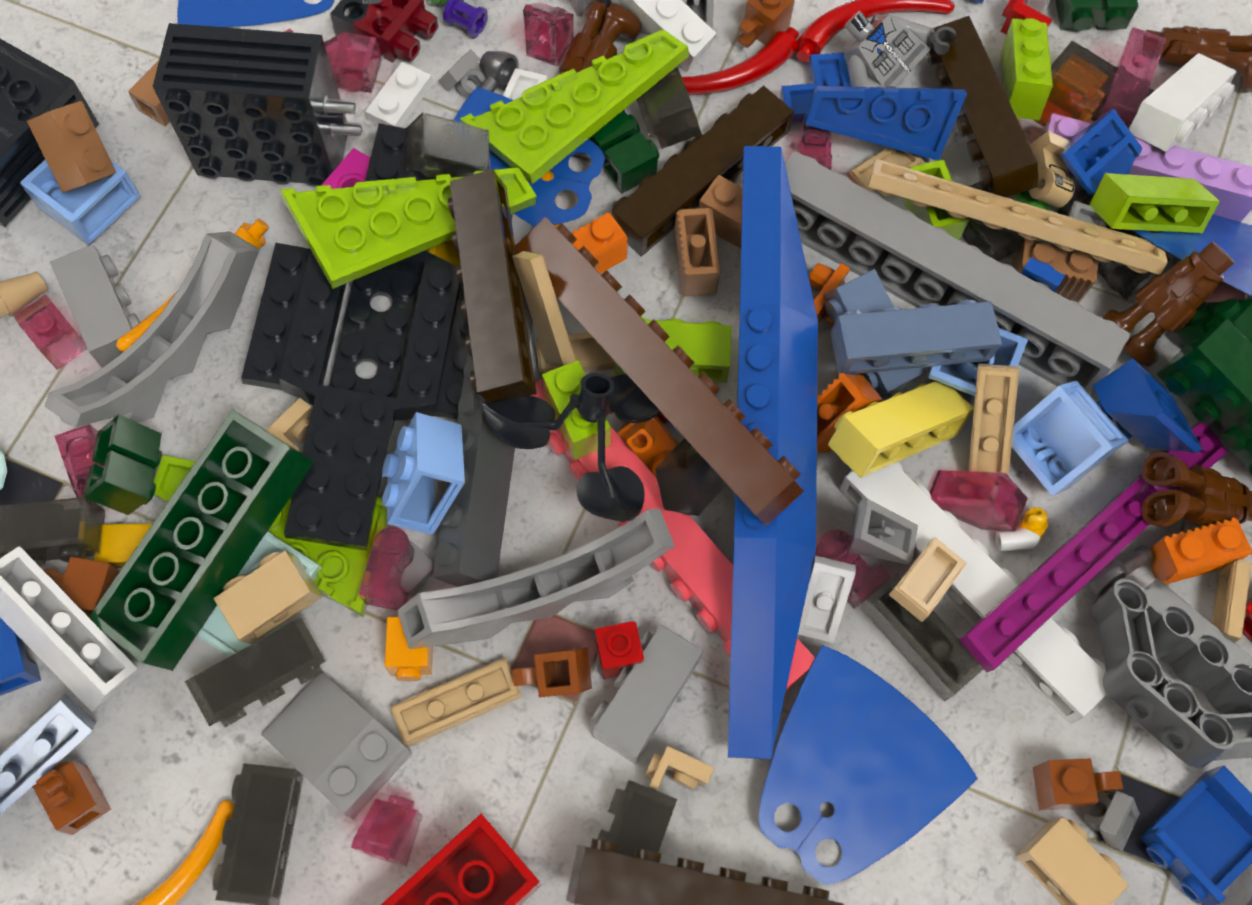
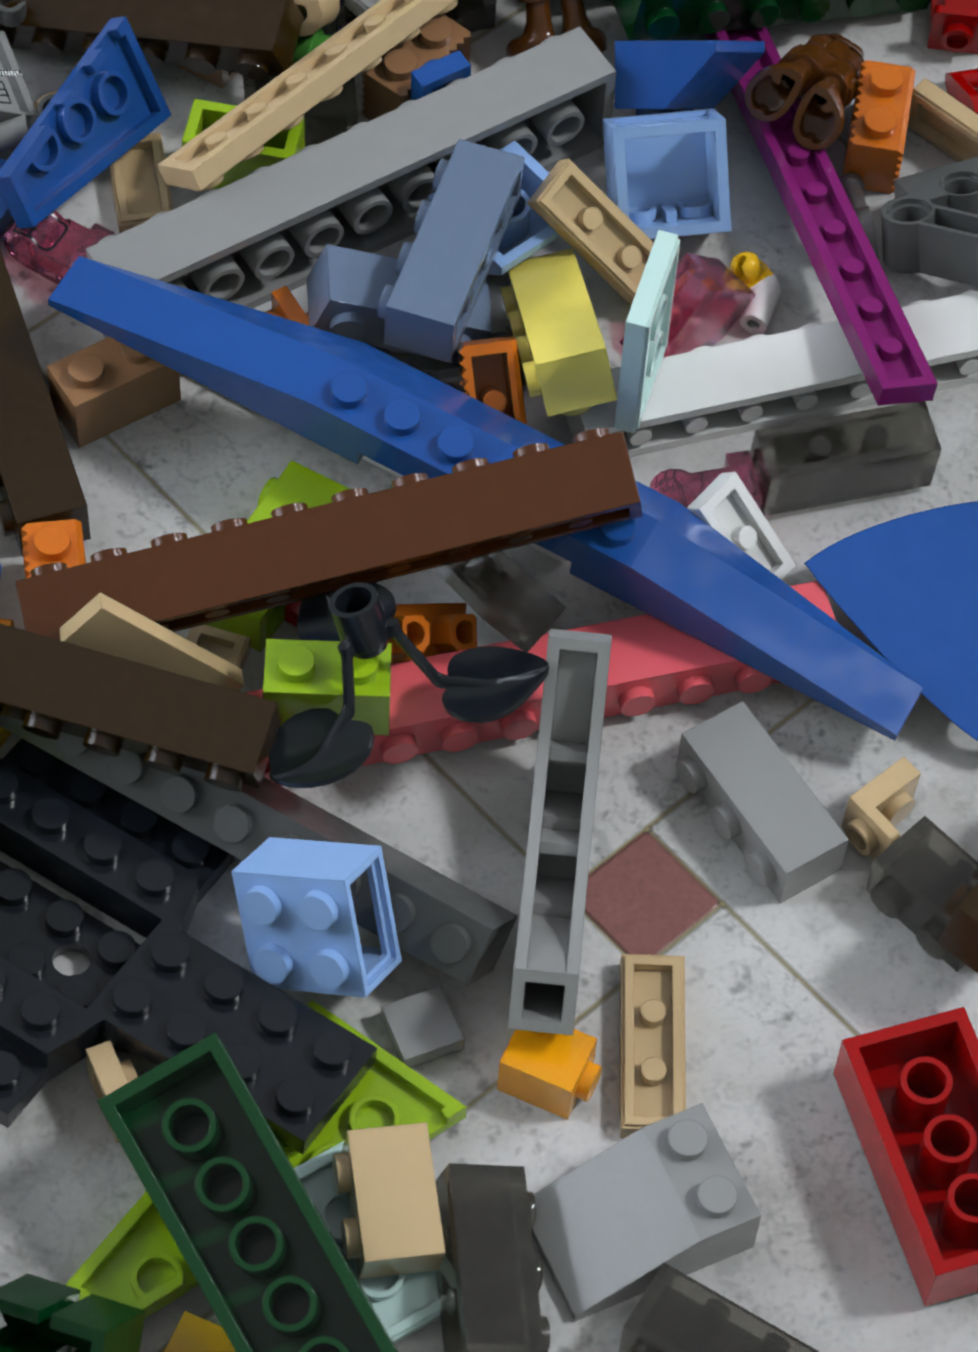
camera: 65 degrees left, 10 degrees down
(385, 570) = (425, 1039): clear pink leg -> none
(389, 830) = (806, 1181): clear pink slope -> none
(557, 672) = (683, 888): dark orange brick -> none
(618, 647) = (685, 806): red bracket -> none
(697, 252) = (146, 454): medium nougat brick -> none
(882, 534) = (690, 428): light grey slope -> none
(913, 468) = (647, 331): none -> light aqua tile
(928, 579) = (782, 402): tan tile -> none

